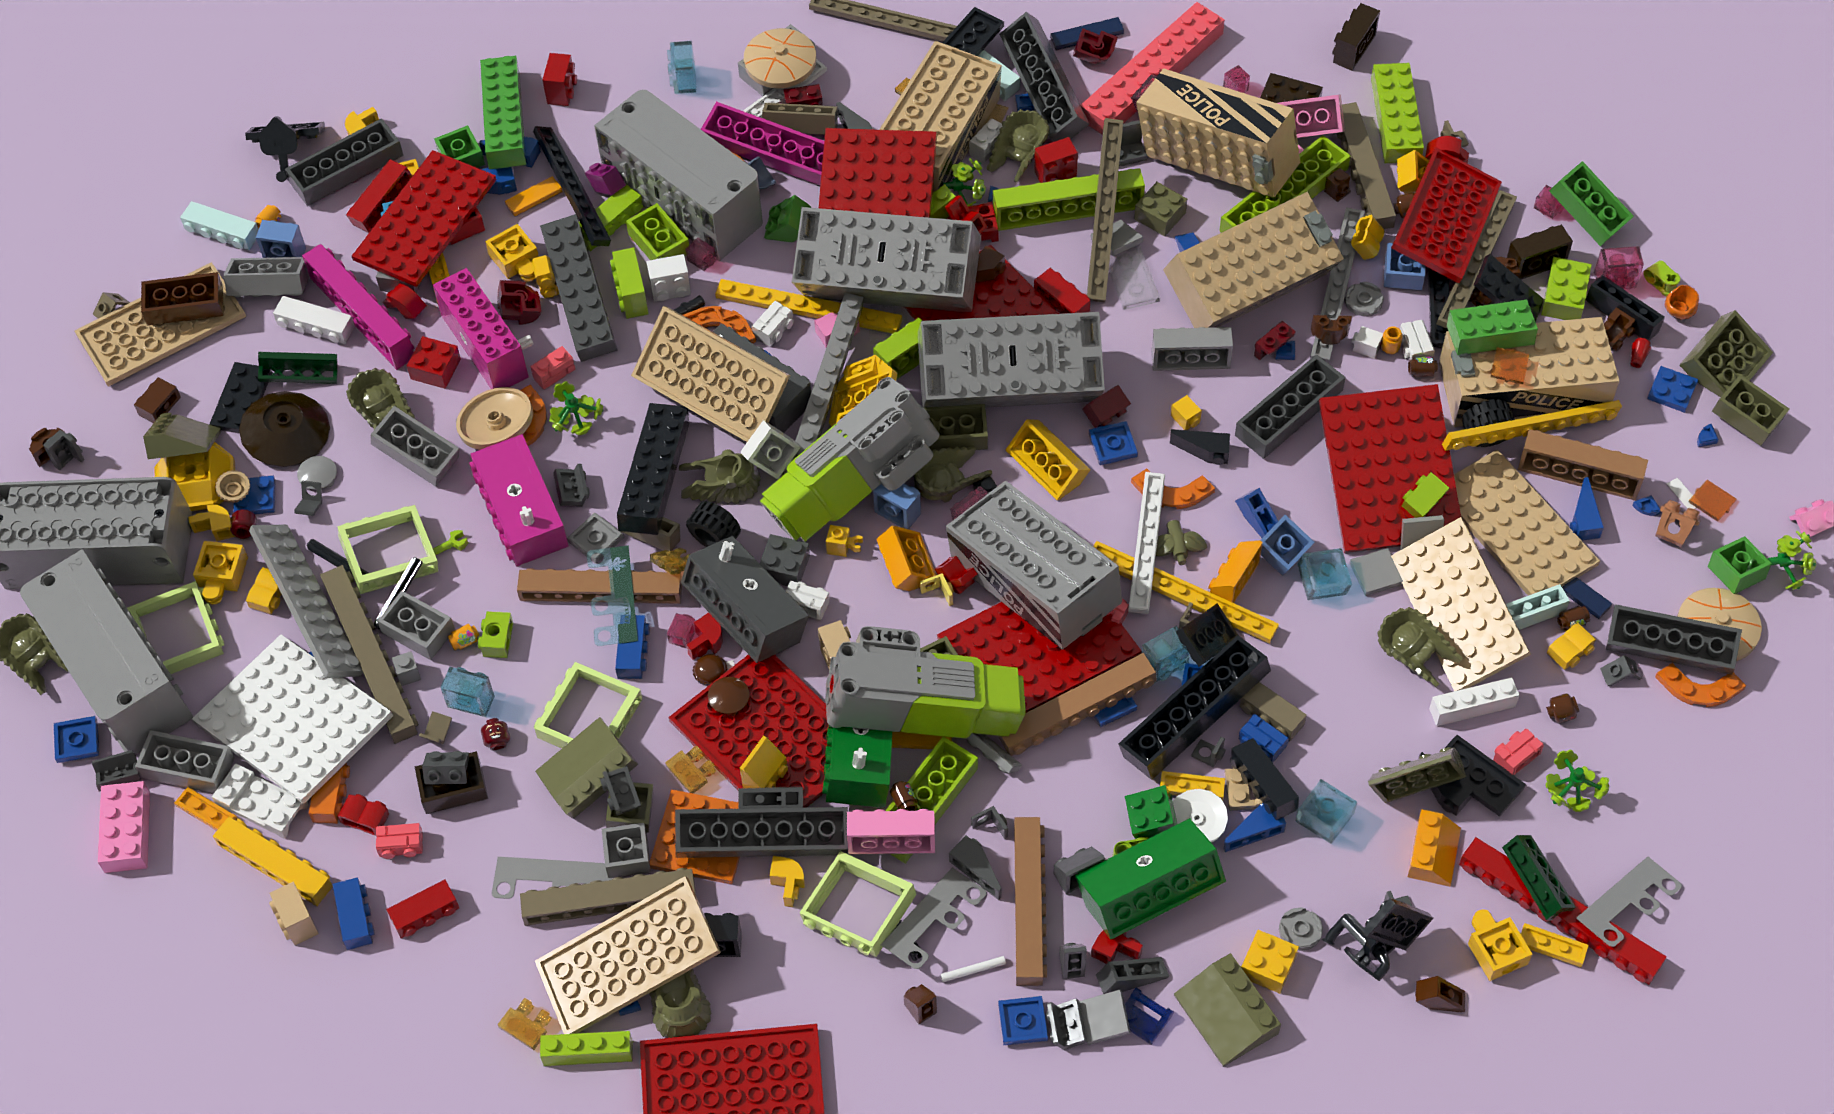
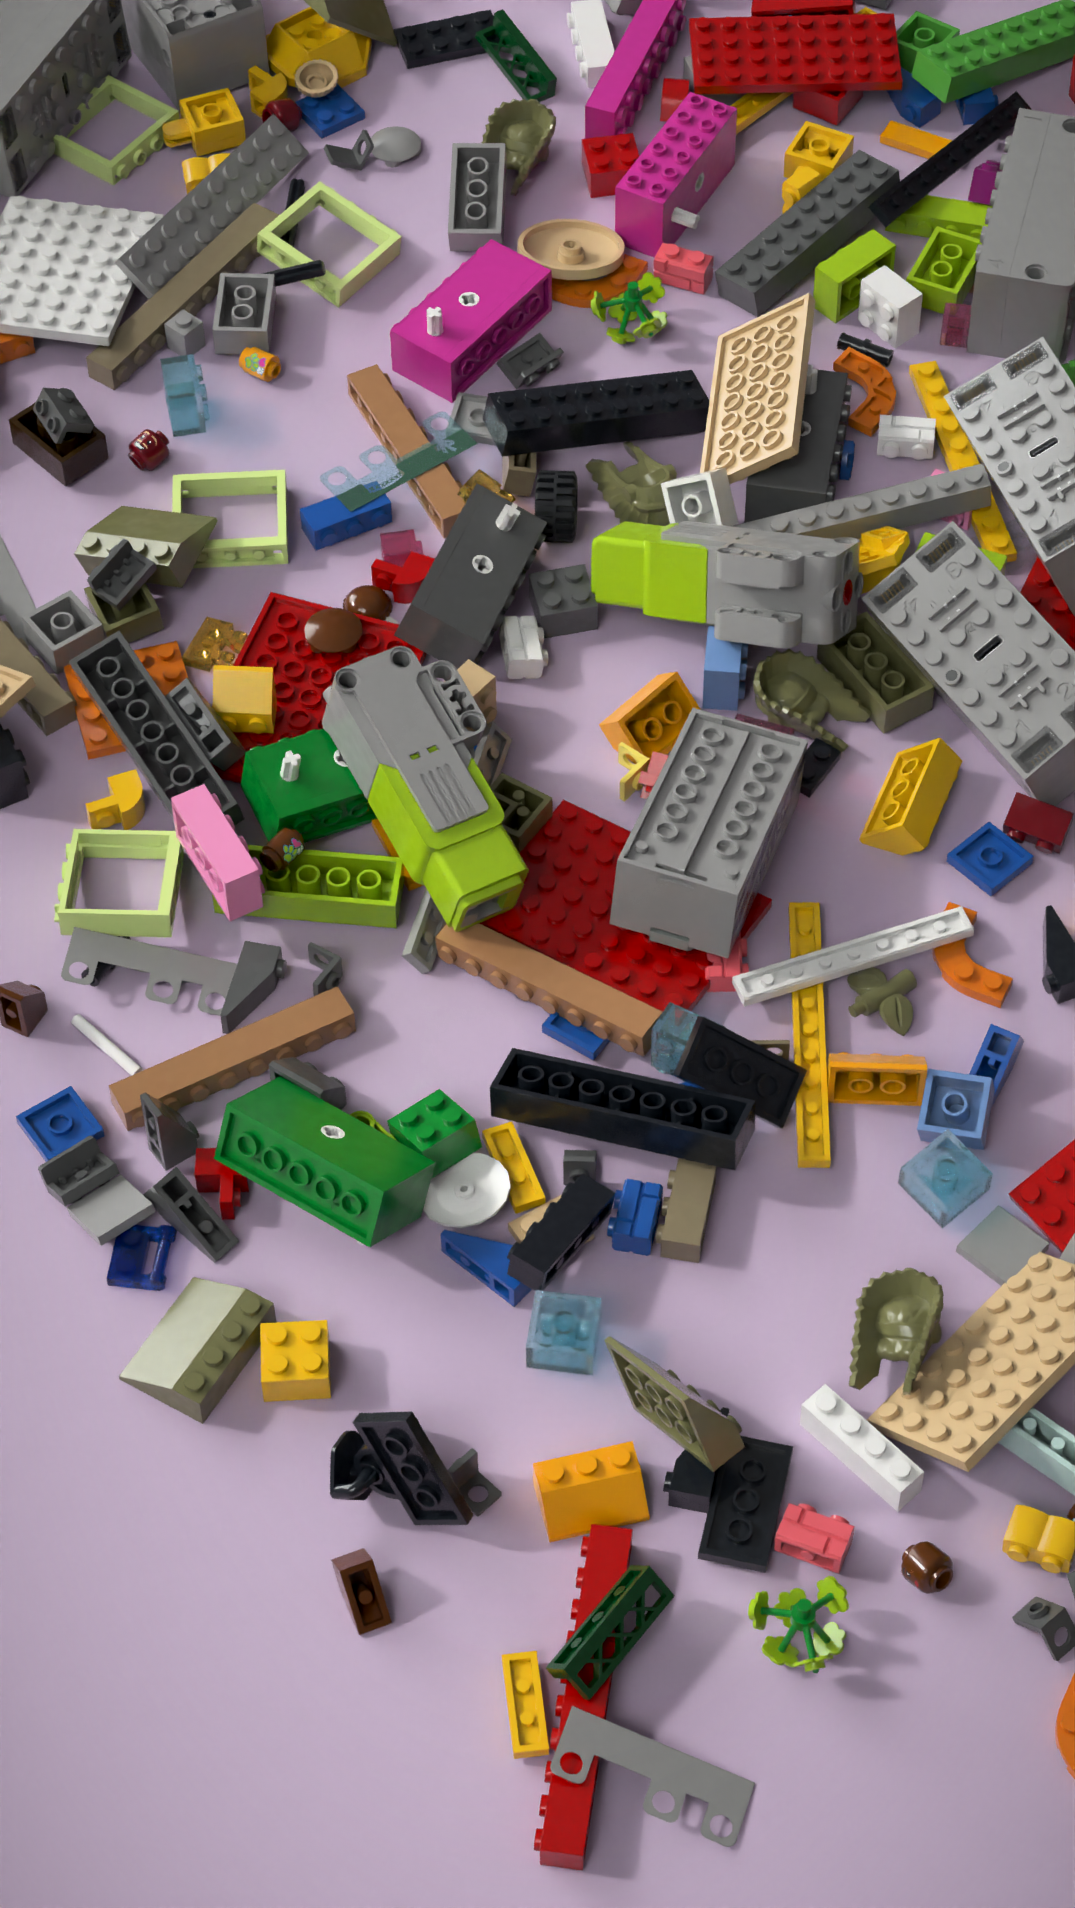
camera: 60 degrees right, 5 degrees down
(289, 441) = (432, 90): dark brown dish -> none
(437, 727) = (123, 399): dark tan bracket -> none
(452, 542) = (385, 300): lime bar -> none
(497, 645) = (282, 390): lime brick -> none
(518, 302) = (750, 193): dark red brick -> none
(839, 541) = (630, 641): yellow brick -> none
(1301, 928) = (373, 1383): light grey tile -> none
(1497, 945) = (476, 1627): yellow brick -> none

